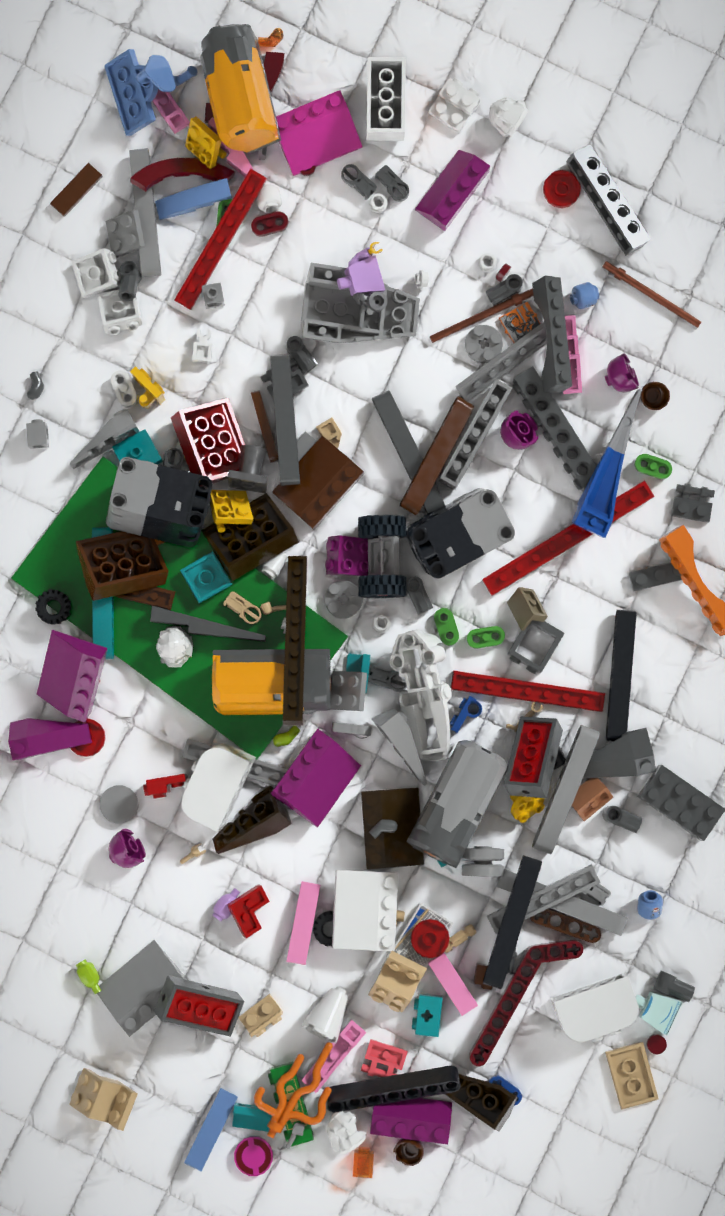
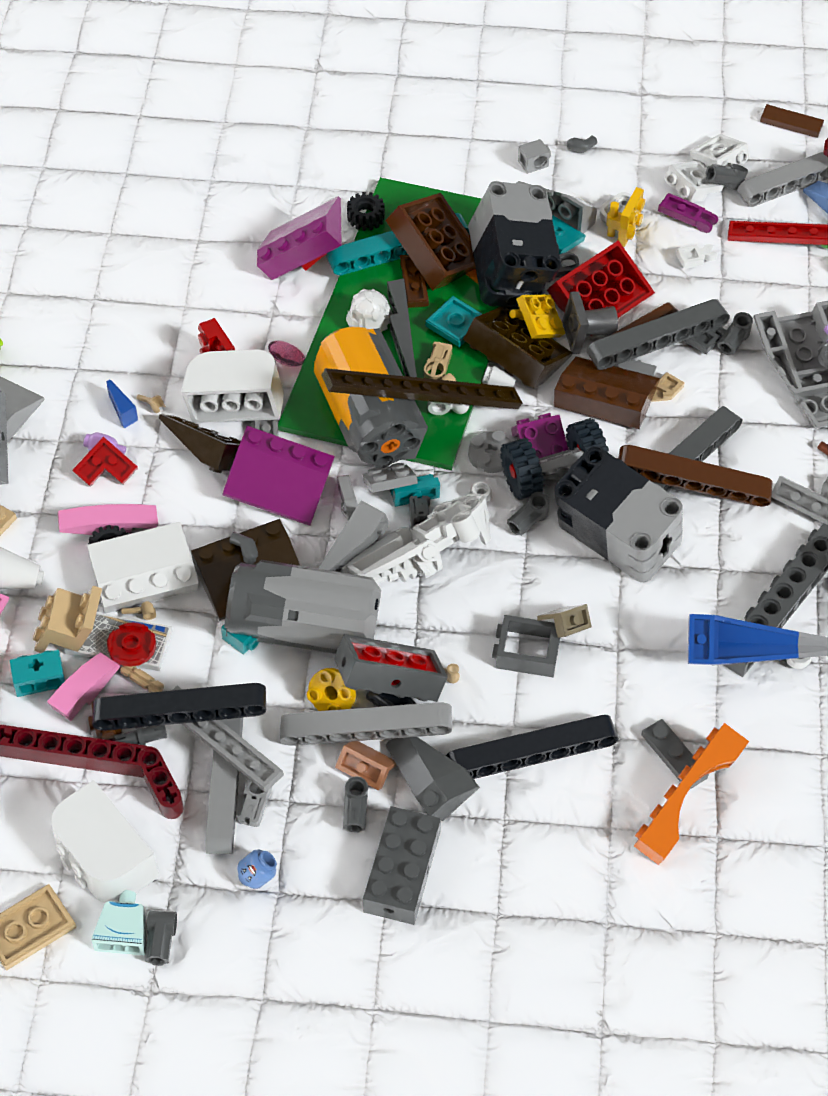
camera: 70 degrees right, 30 degrees down
(39, 737) = (226, 243): magenta wedge -> none
(97, 736) = (242, 281): red tile -> none
(119, 804) = (180, 326): light grey tile -> none
(125, 233) = (772, 160): light grey plate -> none
(126, 850) = (135, 339): magenta cylinder -> none
(151, 332) = (688, 212): none -> magenta hinge
(185, 727) = (286, 353): none -> clear pink piece
(193, 879) = (122, 404): none -> blue slope
(213, 295) = (753, 246): light grey brick -> none
(286, 738) = (310, 440): lime arm -> none
(444, 627) = (509, 556): bright green plate -> none
(457, 721) = (412, 599): blue plate -> none
(475, 434) = (743, 509): light grey brick -> none
(483, 860) = (247, 662): light grey wheel -> none
(485, 637) = (514, 596): bright green plate -> none
(518, 430) = (766, 546): magenta cylinder -> none
(528, 691) = (469, 660): red tile -> none
(561, 542) = (669, 641): red plate -> none
(563, 927) = (198, 786): reddish brown beam -> none
(653, 465) = (802, 705): bright green plate -> none
(656, 1044) = (77, 942): dark red tile -> none
(693, 509) = (774, 765): dark grey plate -> none

